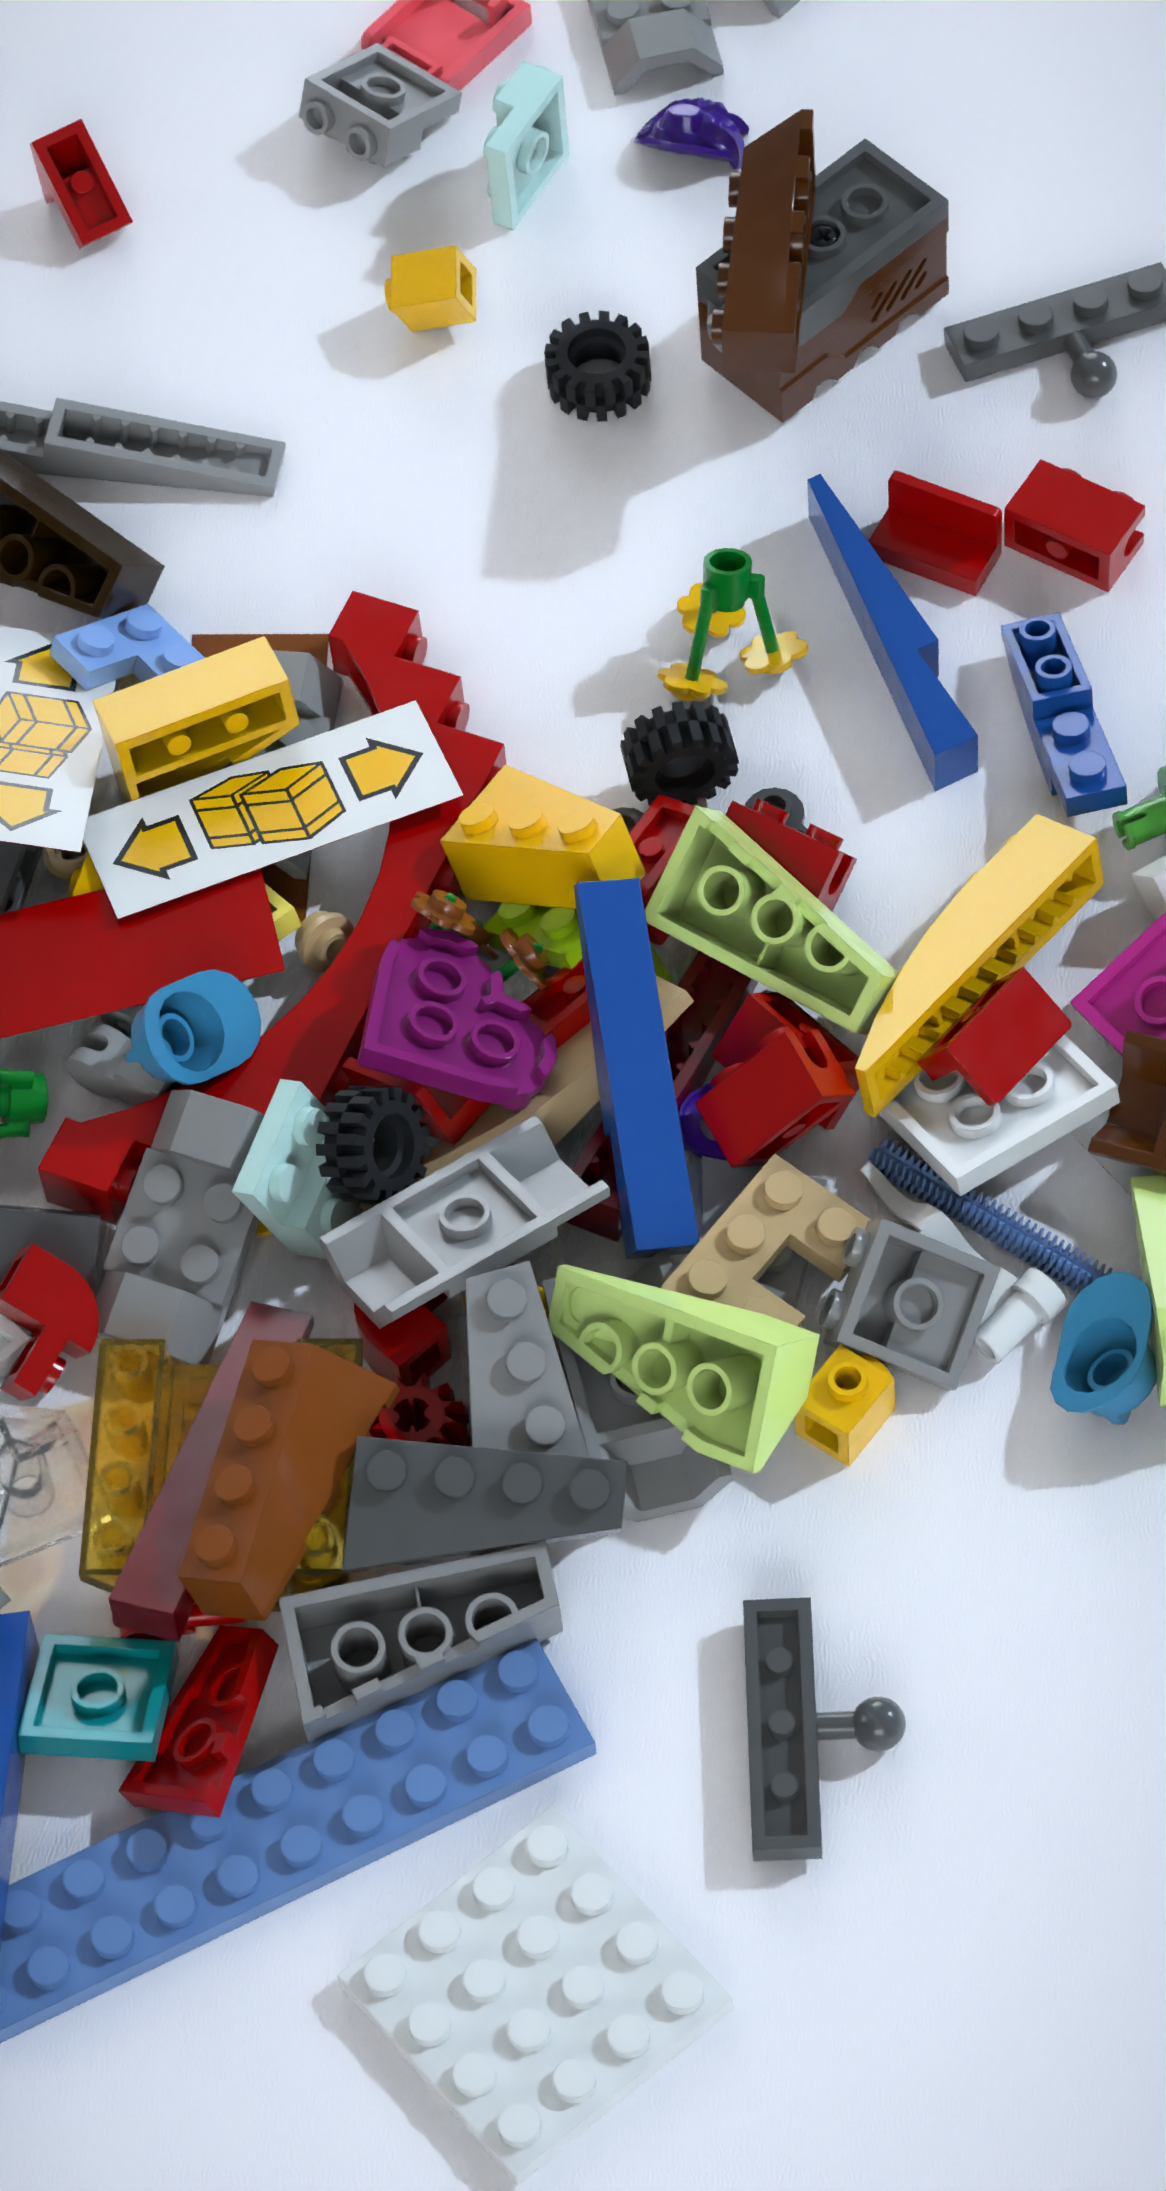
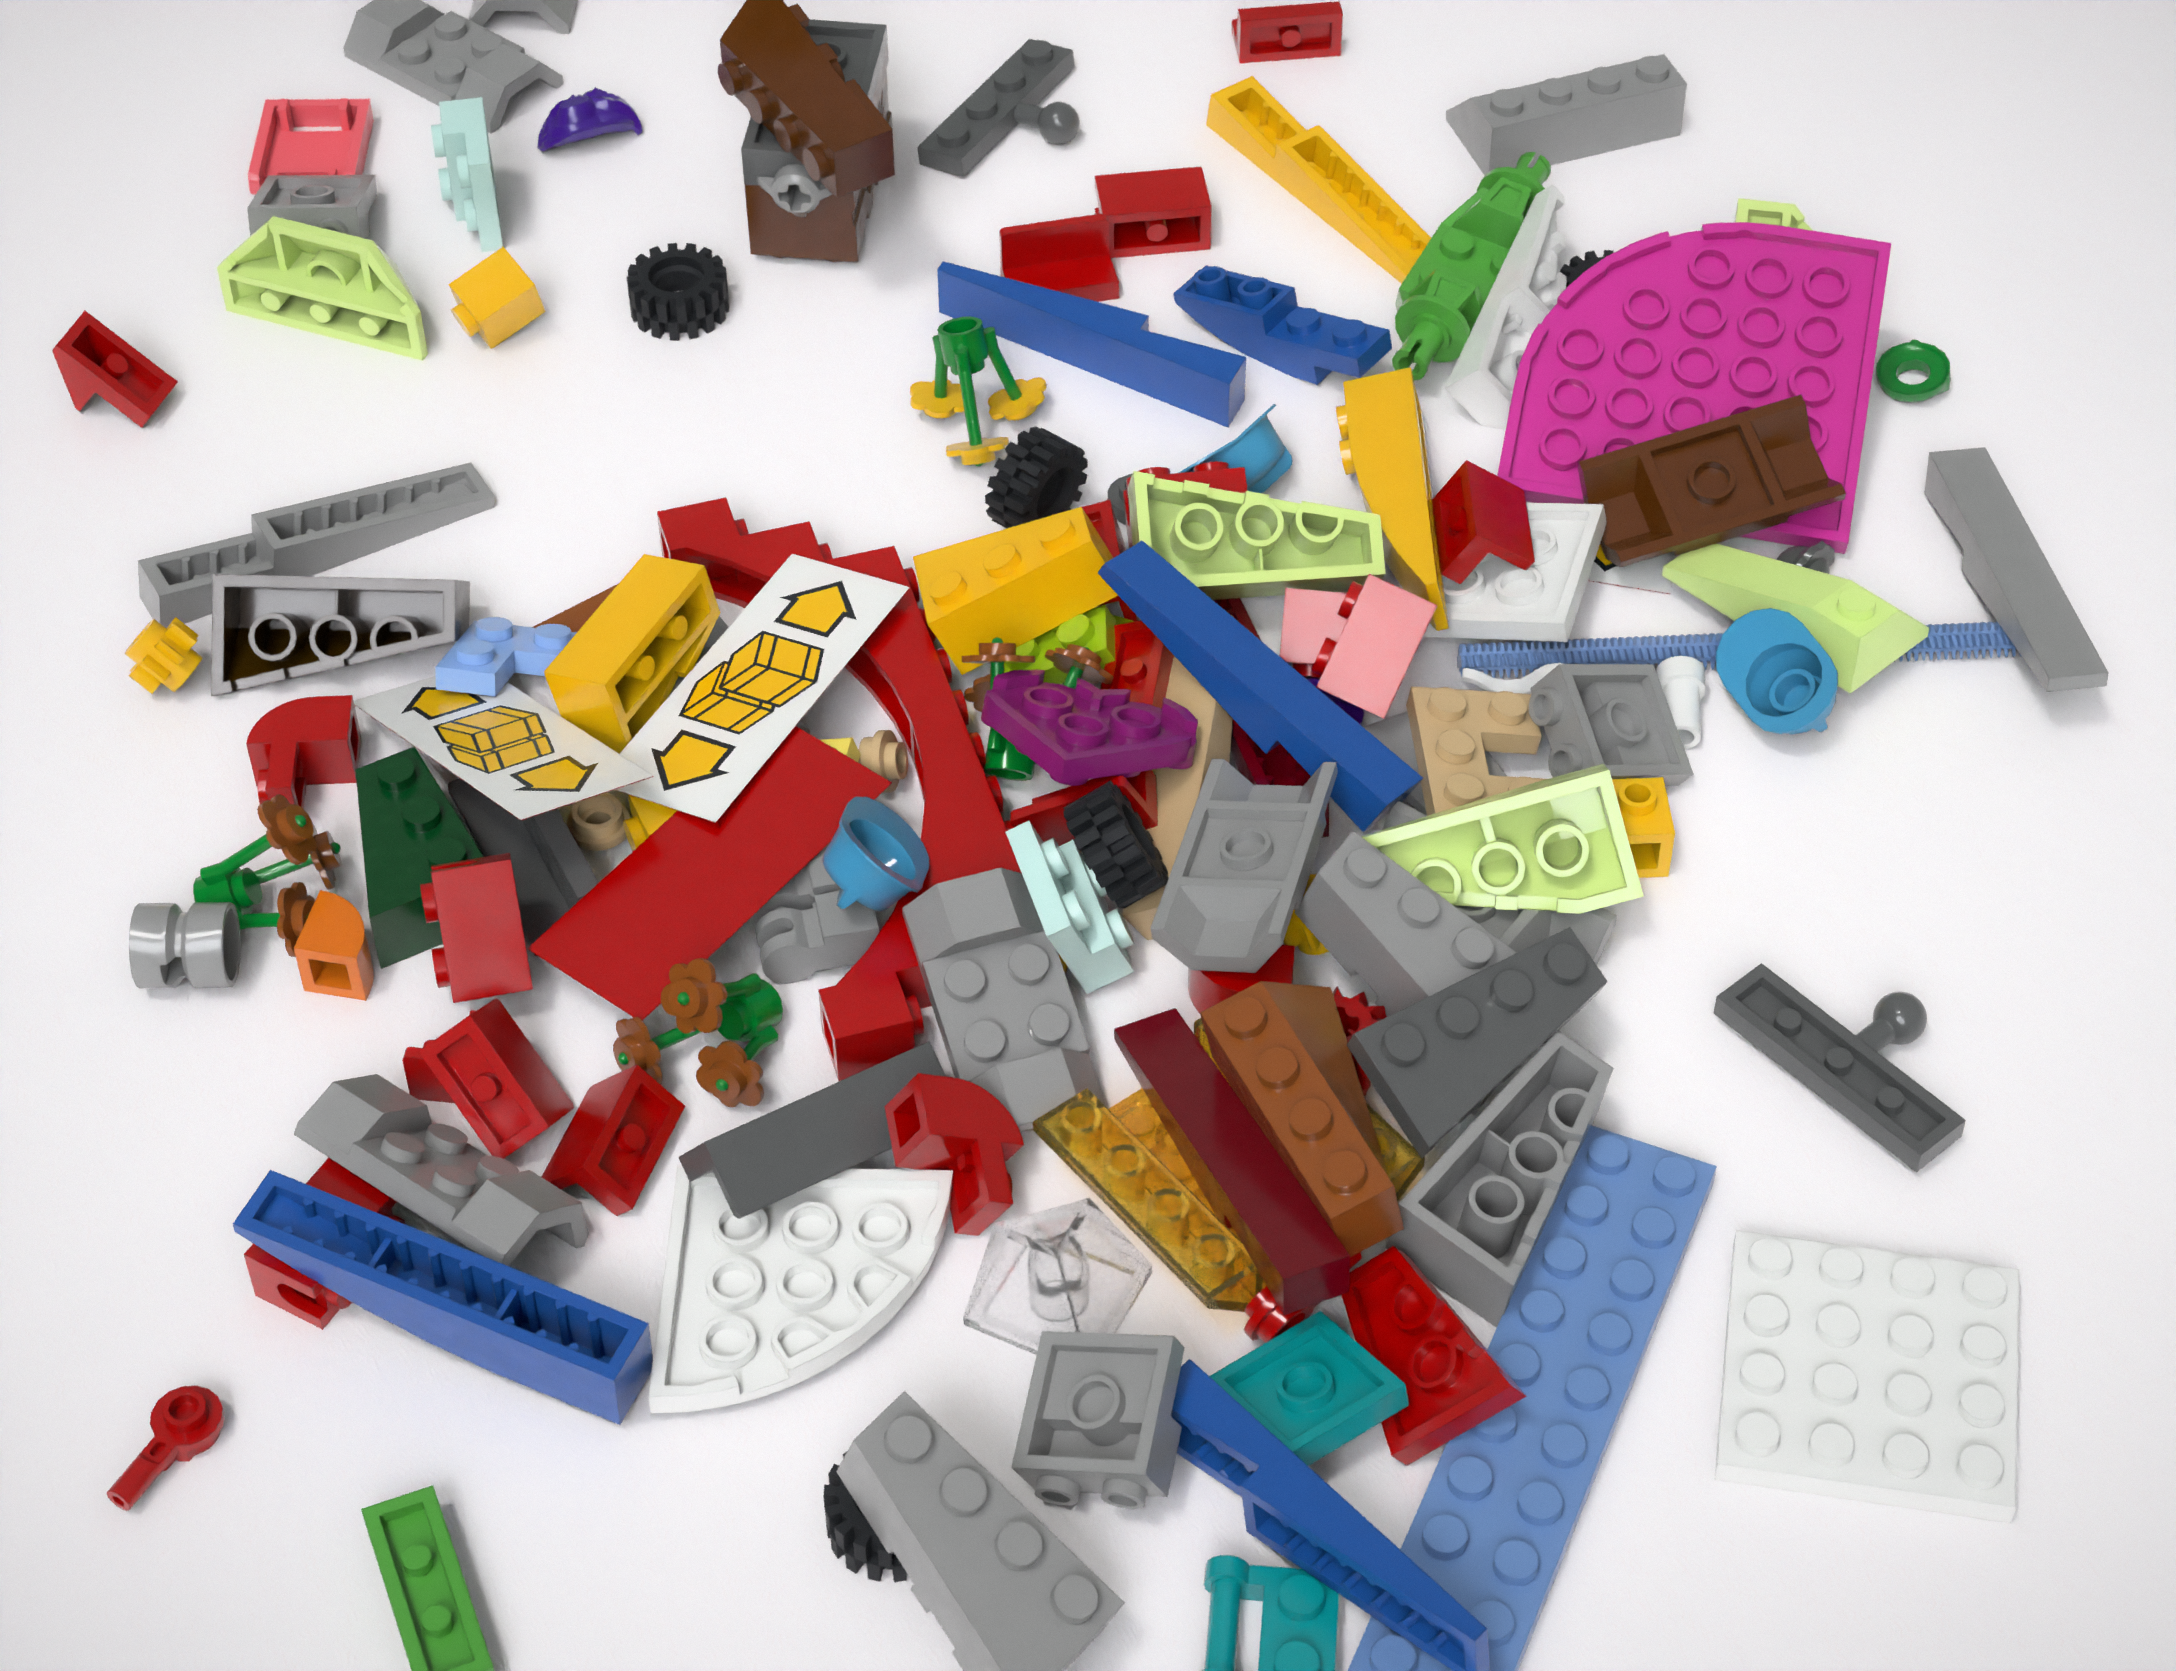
camera: 45 degrees left, 10 degrees down
(316, 198) = (323, 286): none -> yellowish green wedge
(886, 841) = (1258, 451): none -> dark azure piece

